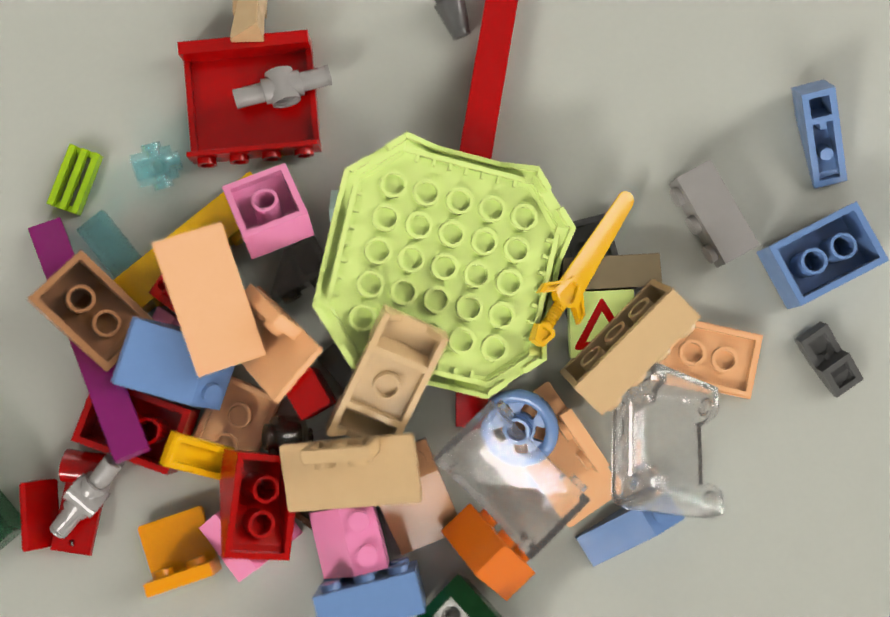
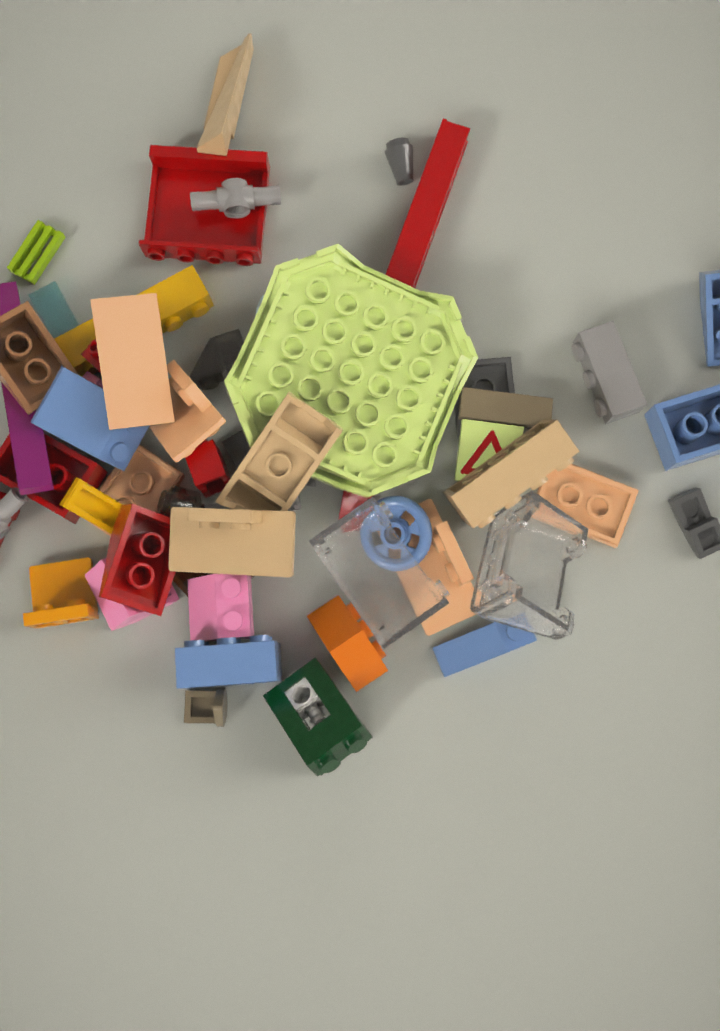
camera: 15 degrees right, 5 degrees down
(143, 169) = (102, 257): clear light blue brick -> none
(268, 210) = (202, 300): bright pink slope -> none
(422, 522) = (289, 600): medium nougat slope -> none
(571, 286) = (464, 413): yellow sword -> none

